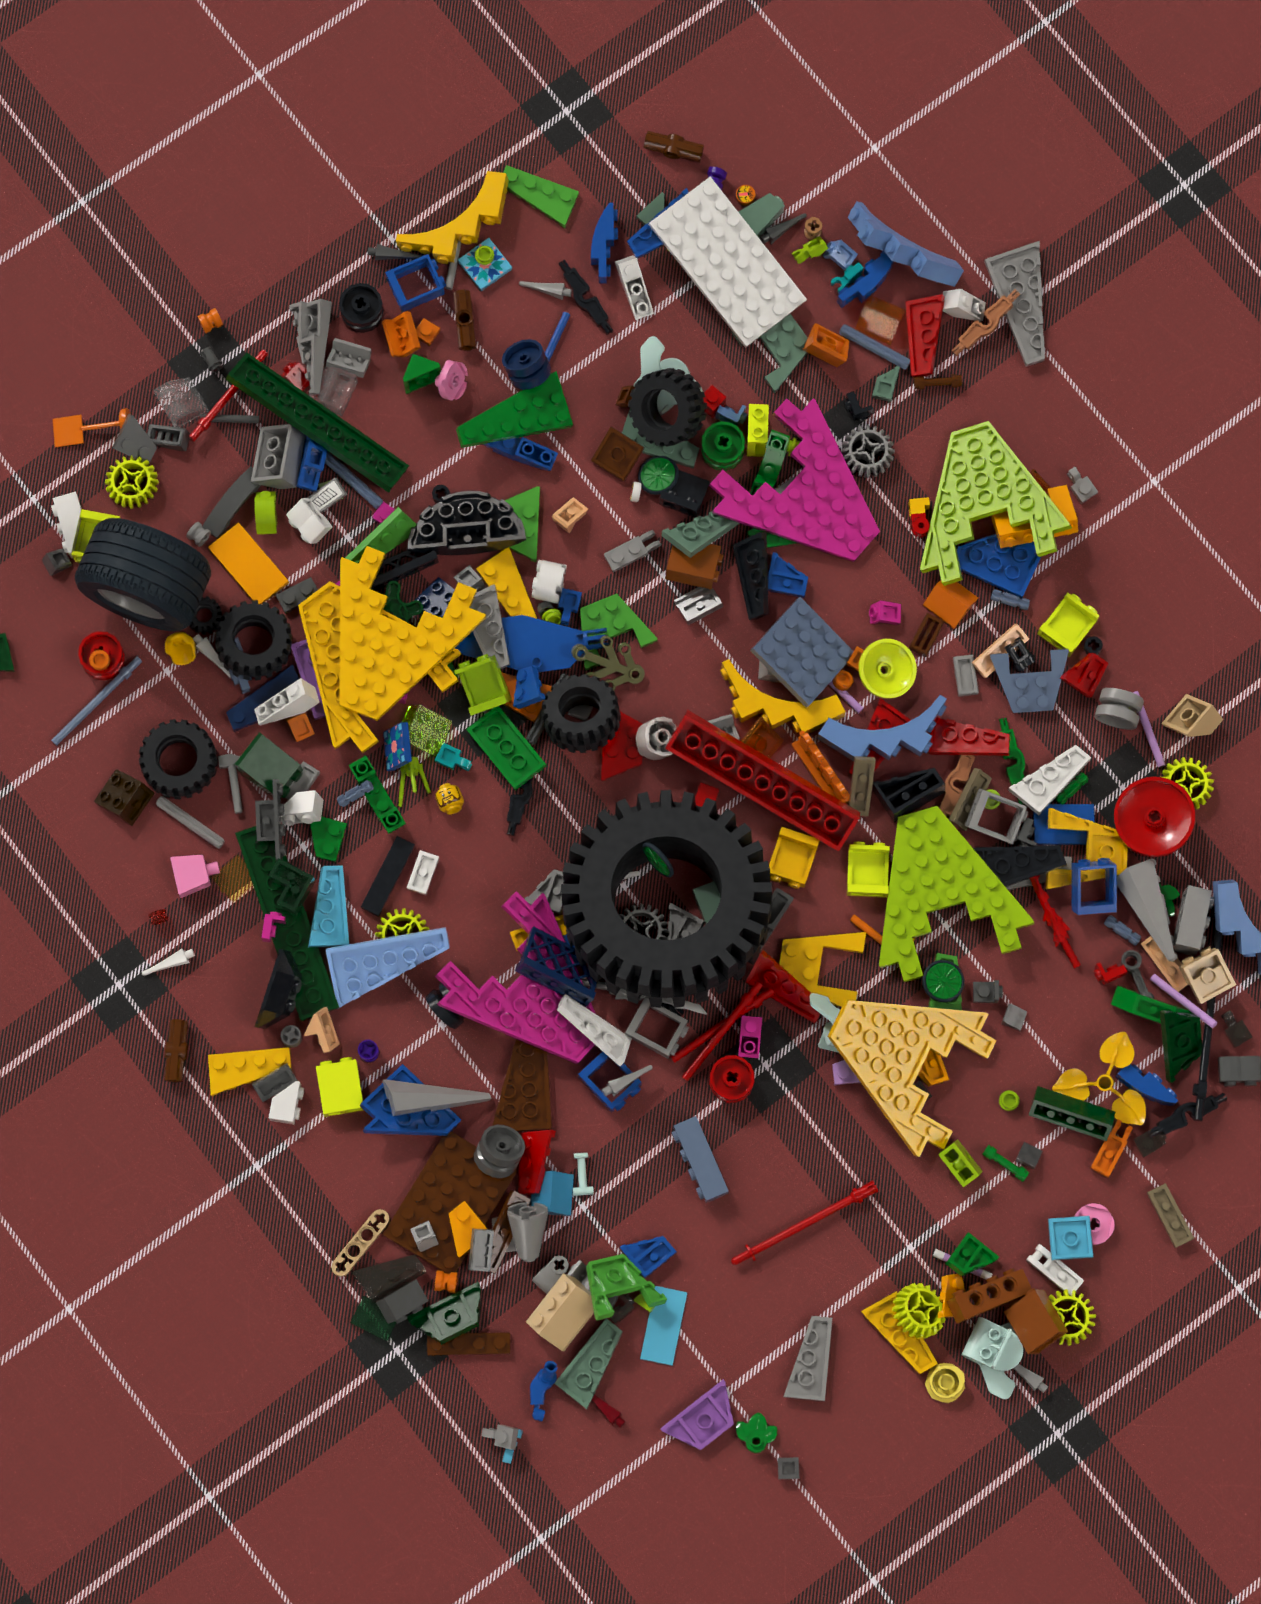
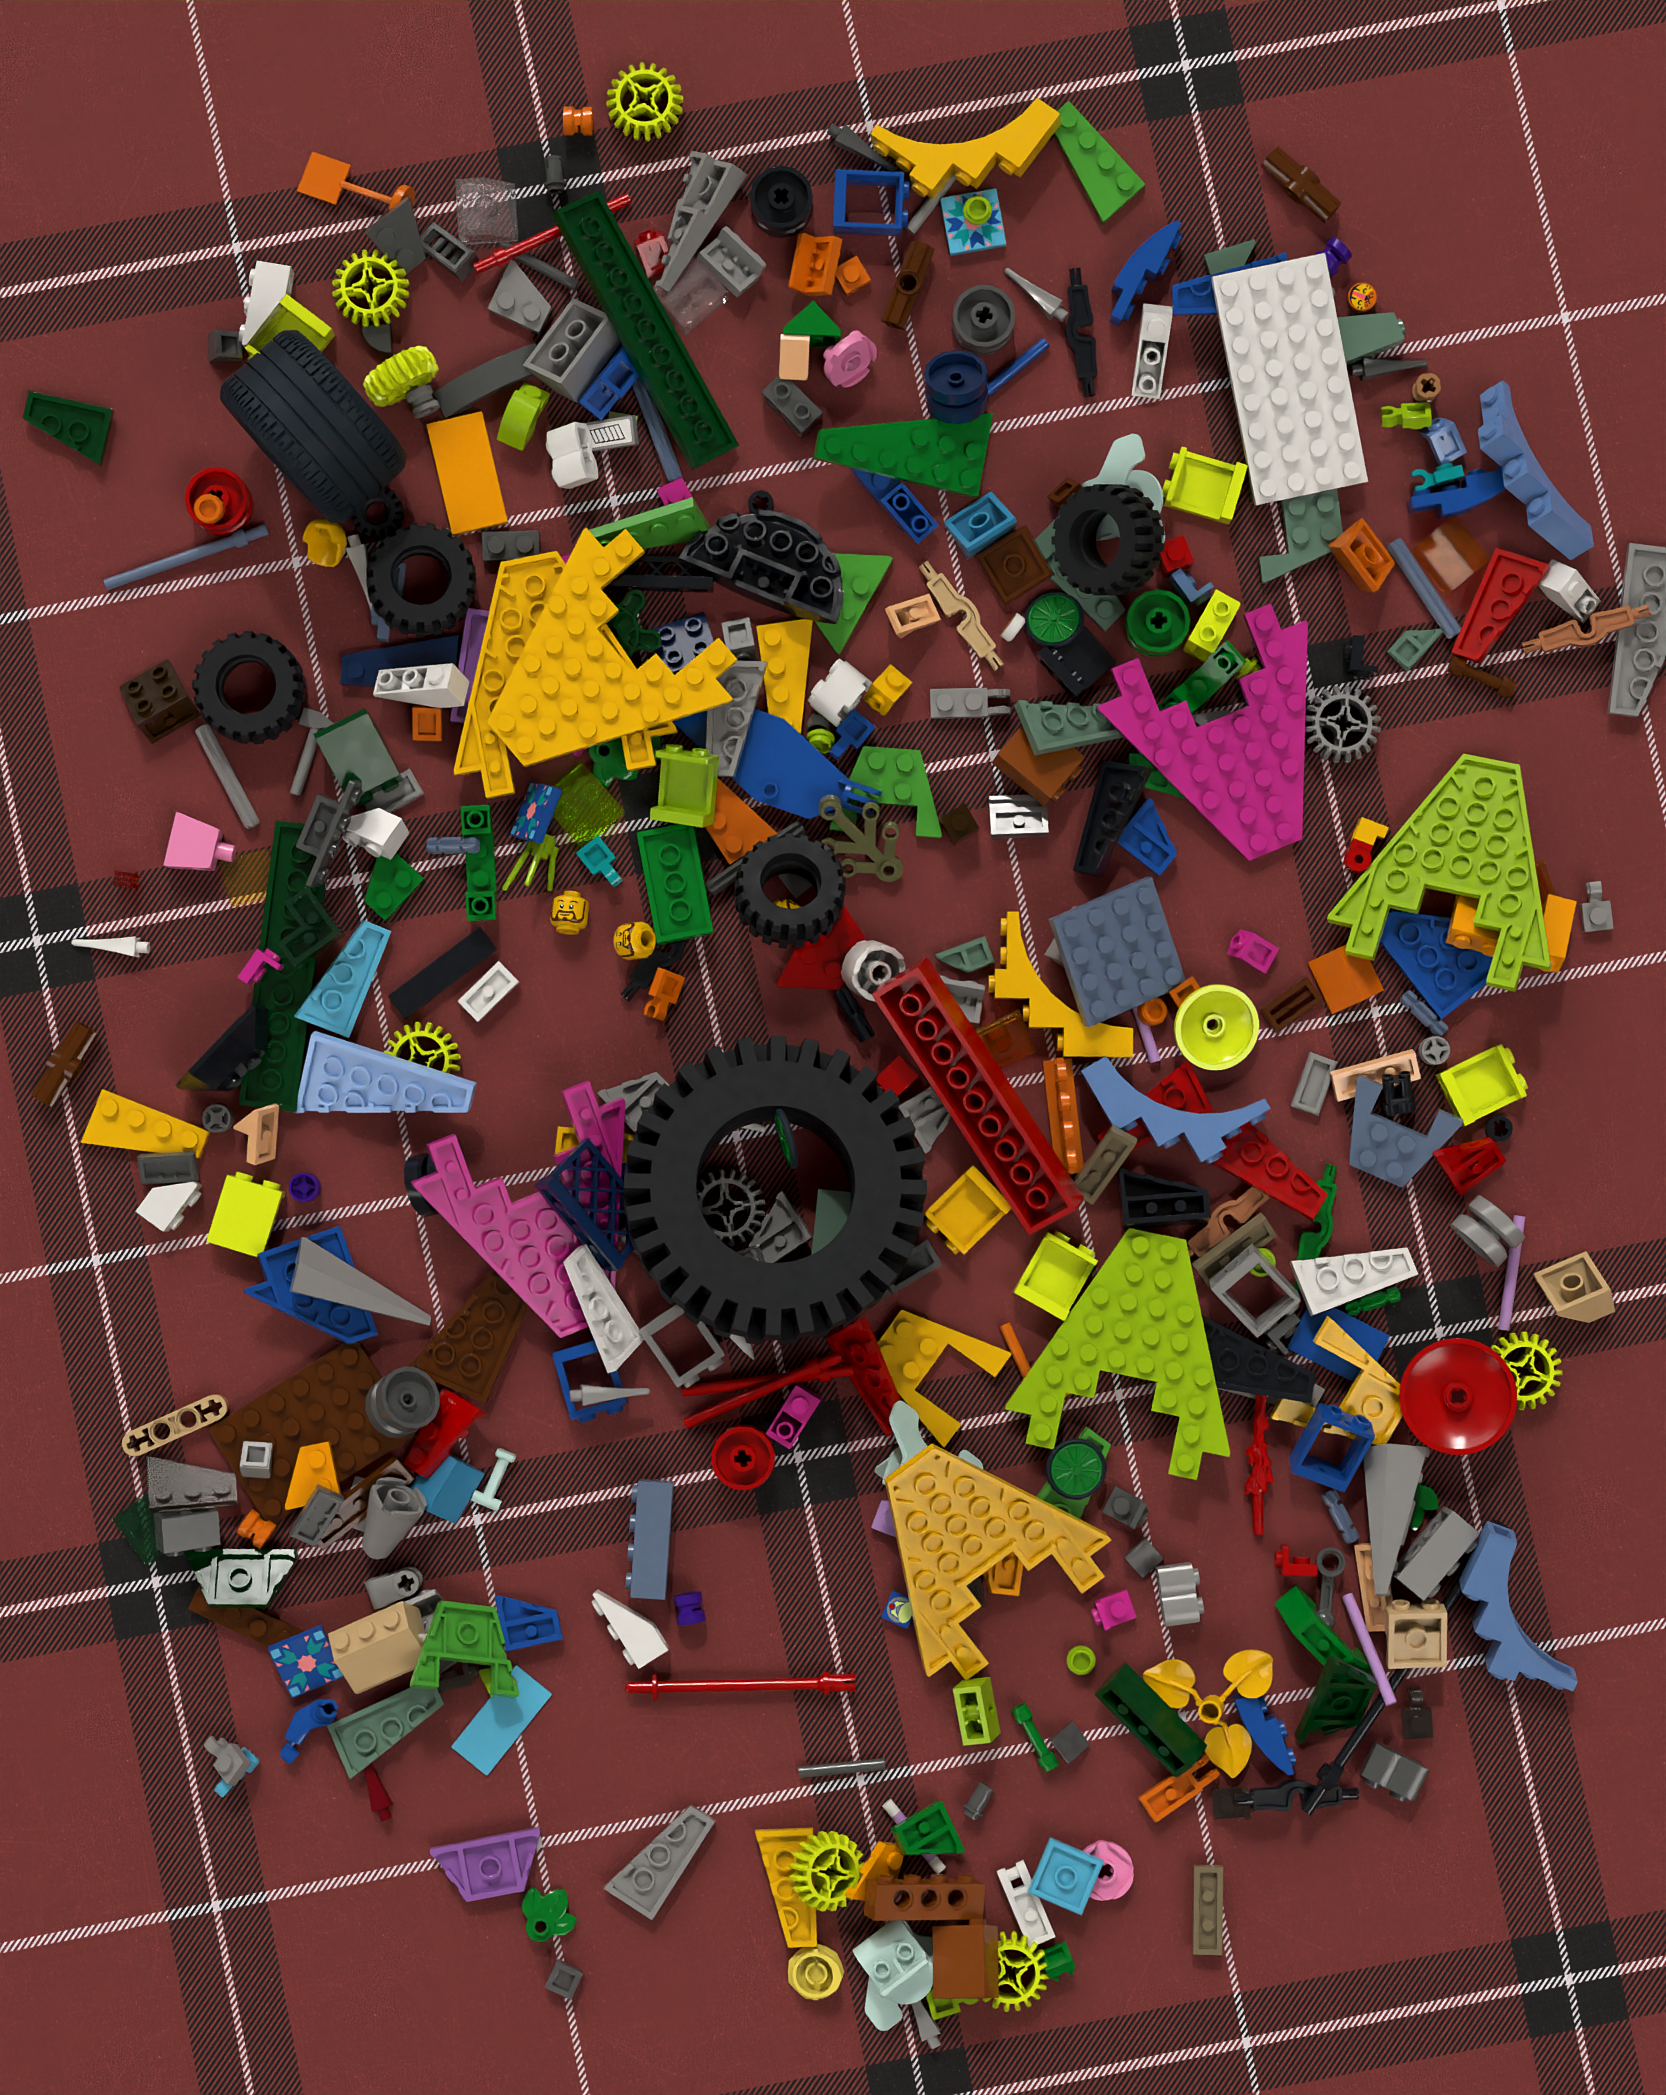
camera: 30 degrees right, 10 degrees up
(151, 509) = (379, 338): none -> dark grey tile
(180, 519) = (400, 375): none -> neon yellow gear
(228, 445) = (519, 300): none -> light grey wing
(233, 282) = (652, 93): none -> neon yellow gear
(417, 394) = (794, 357): none -> light nougat slope
(430, 425) = (792, 406): none -> dark grey brick
(430, 695) = (611, 764): none -> green plate
(499, 795) = (634, 940): none -> yellow head
(520, 1348) = (305, 1661): none -> tile
(523, 307) = (986, 303): none -> dark grey wheel
(527, 688) = (739, 820): blue wing -> none
(534, 817) = (665, 989): none -> orange plate
(577, 567) = (886, 690): none -> yellow bracket
(584, 440) = (980, 524): none -> dark azure slope
(609, 506) = (950, 604): none -> tan piece
(659, 774) = (854, 1014): none -> black axle
(664, 625) = (959, 824): none -> dark brown brick
(708, 351) = (1204, 486): none -> neon yellow panel
(712, 703) = (968, 956): none -> sand green tile
(722, 1224) = (638, 1634): none -> white slope
(739, 805) = (927, 1115): none -> light grey wing
(746, 1192) = (689, 1608): none -> dark purple wheel
(878, 1127) = (898, 1609): none -> tile
(894, 1245) = (841, 1768): none -> dark grey bar
(991, 1221) = (978, 1801): none -> dark grey pin
(1012, 1059) = (1113, 1609): none -> dark pink bracket
(1028, 614) = (1440, 1050): none -> light grey wheel
(1037, 1361) = (944, 2007): none -> lime plate
(1048, 1028) = (1178, 1594): none -> light grey brick
(1094, 1294) = (1058, 1961): none -> green tile

